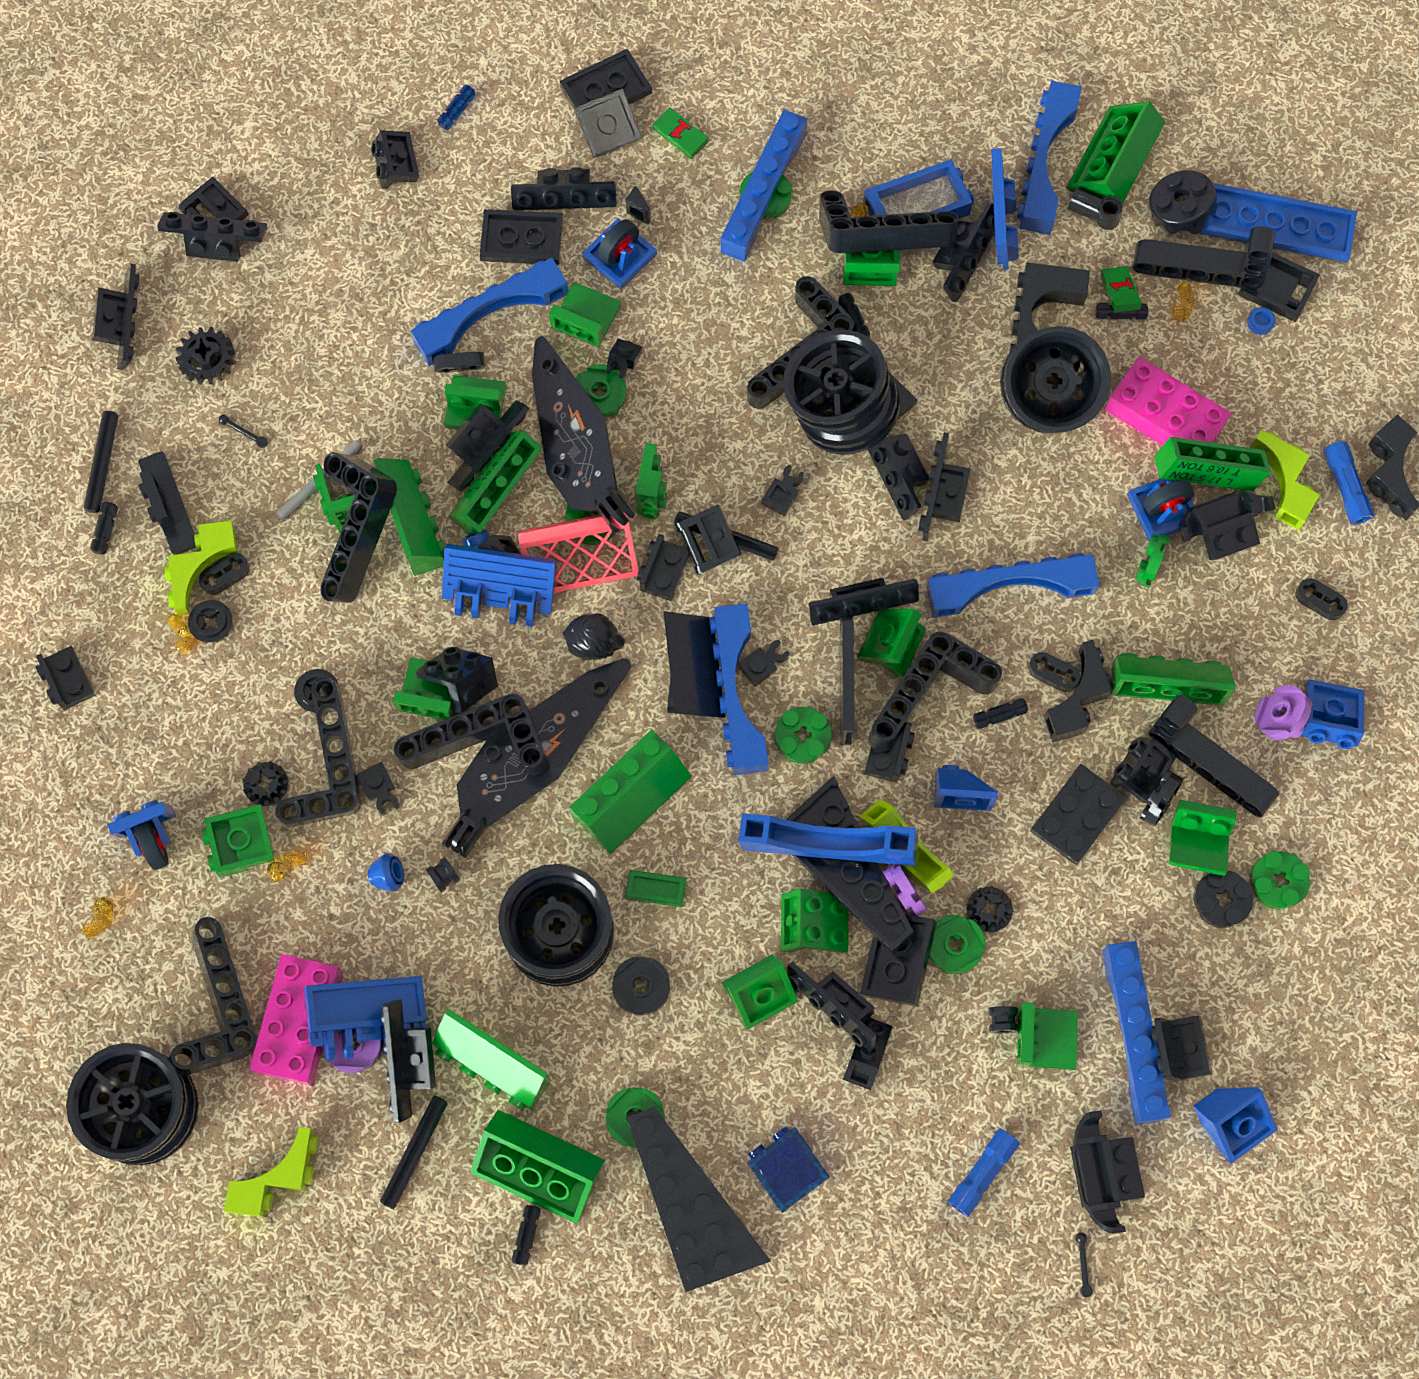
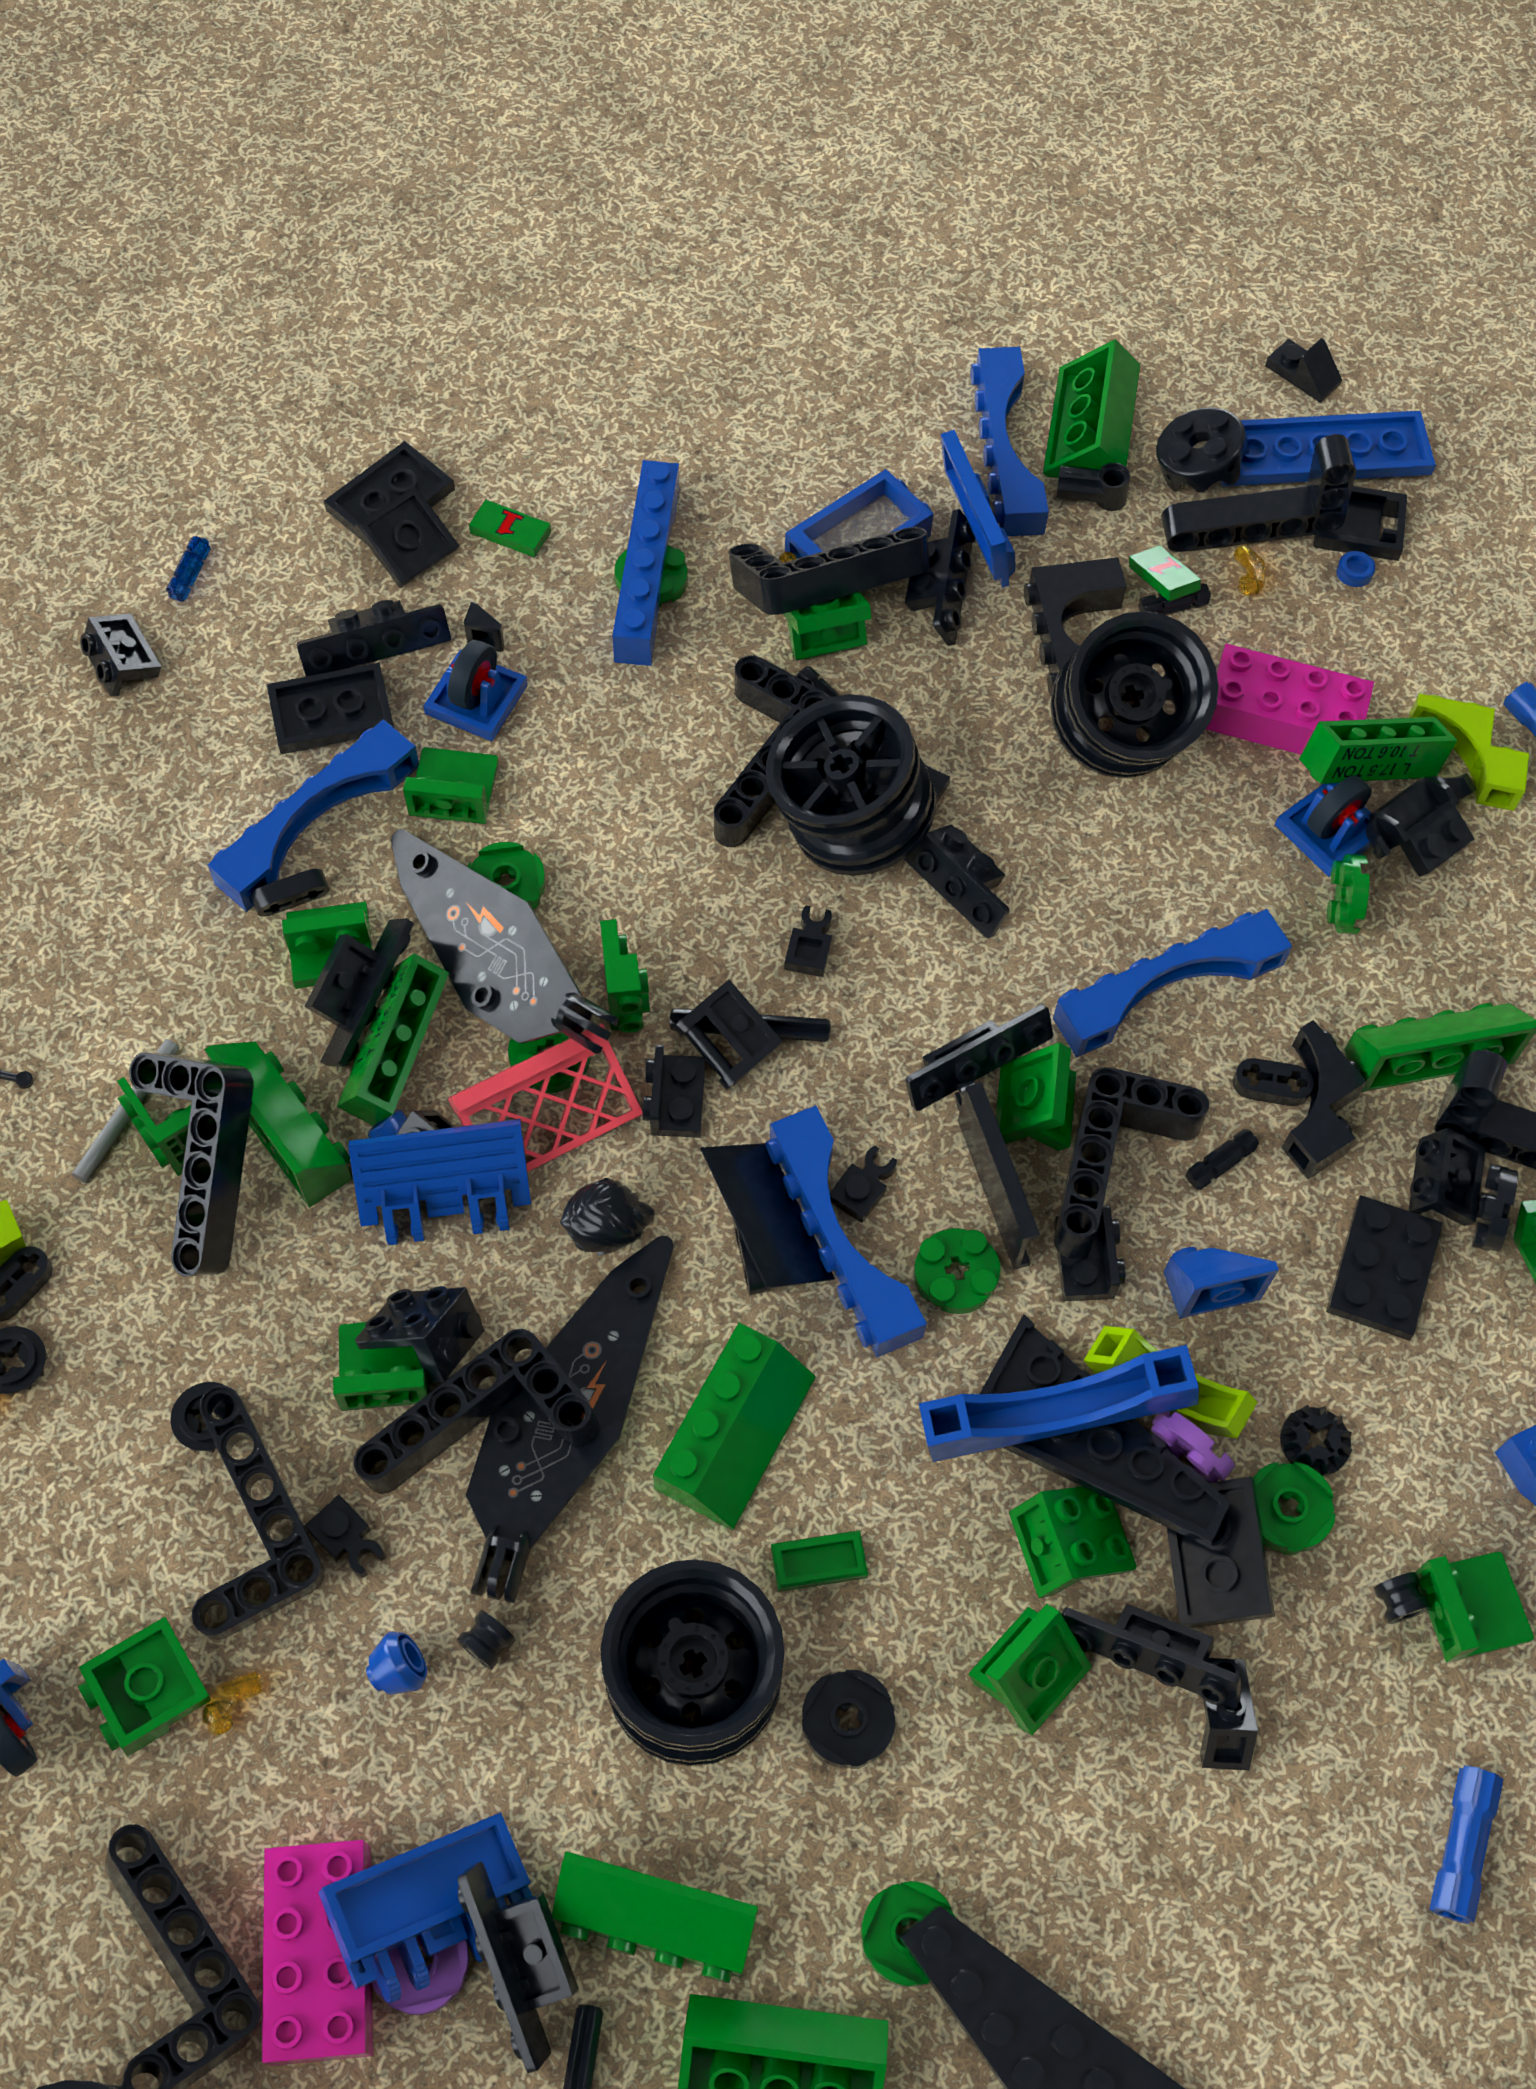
camera: 20 degrees left, 10 degrees down
(277, 788) = (184, 1584): black gear -> none
(623, 356) = (525, 824): black plate -> none
(787, 1168) = (1171, 1939): clear blue plate -> none
(948, 490) = (1036, 880): black bracket -> none
(1289, 155) = (1308, 369): none -> black slope

